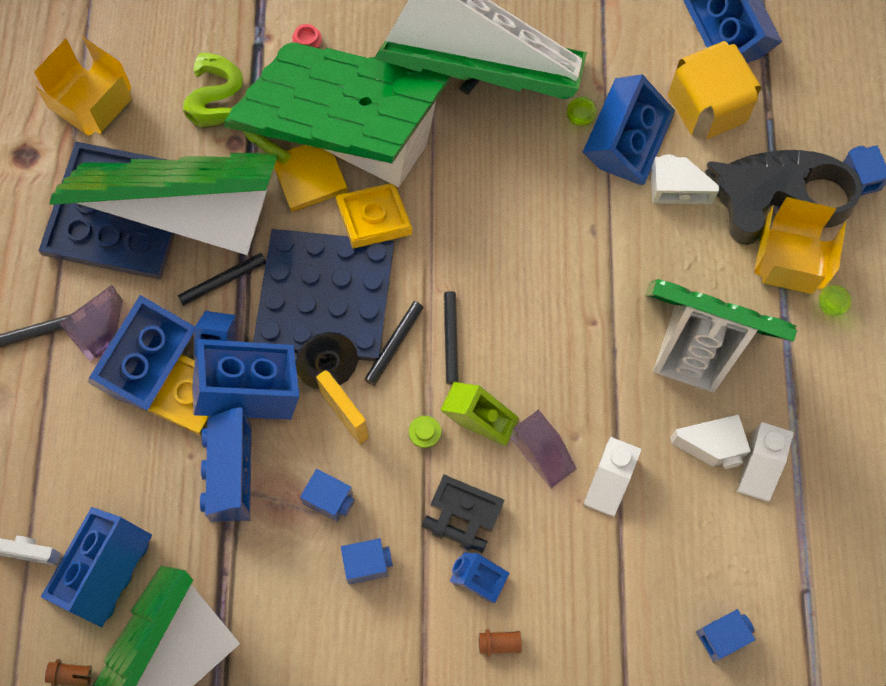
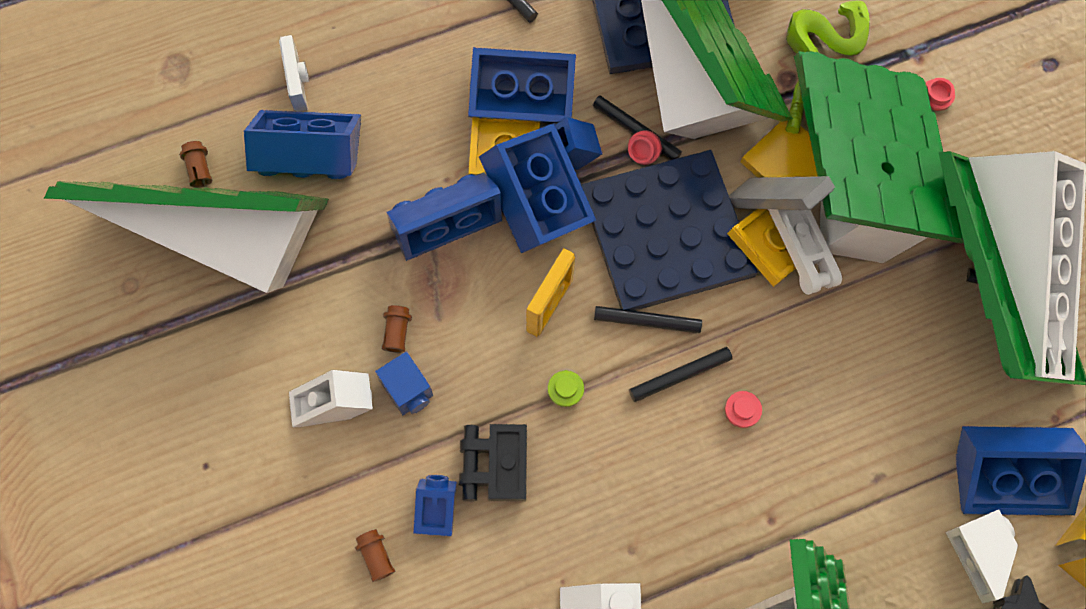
camera: 65 degrees right, 0 degrees up
(95, 323) = (537, 32): clear purple slope -> none
(244, 279) = (644, 147): none -> coral plate
(311, 550) = (396, 328): none -> dark orange pin
(328, 495) = (456, 320): blue brick -> none
(340, 362) = (589, 270): black dish -> none
(346, 189) = (782, 193): none -> light grey tile
(350, 630) = (330, 398): none -> white slope
(390, 193) = (806, 249): none -> white plate
(479, 412) = (609, 436): lime slope -> none
(500, 302) = (743, 409): none -> coral plate
(543, 448) = (599, 519): slope -> none
(581, 111) = (1013, 408): clear neon green plate -> none

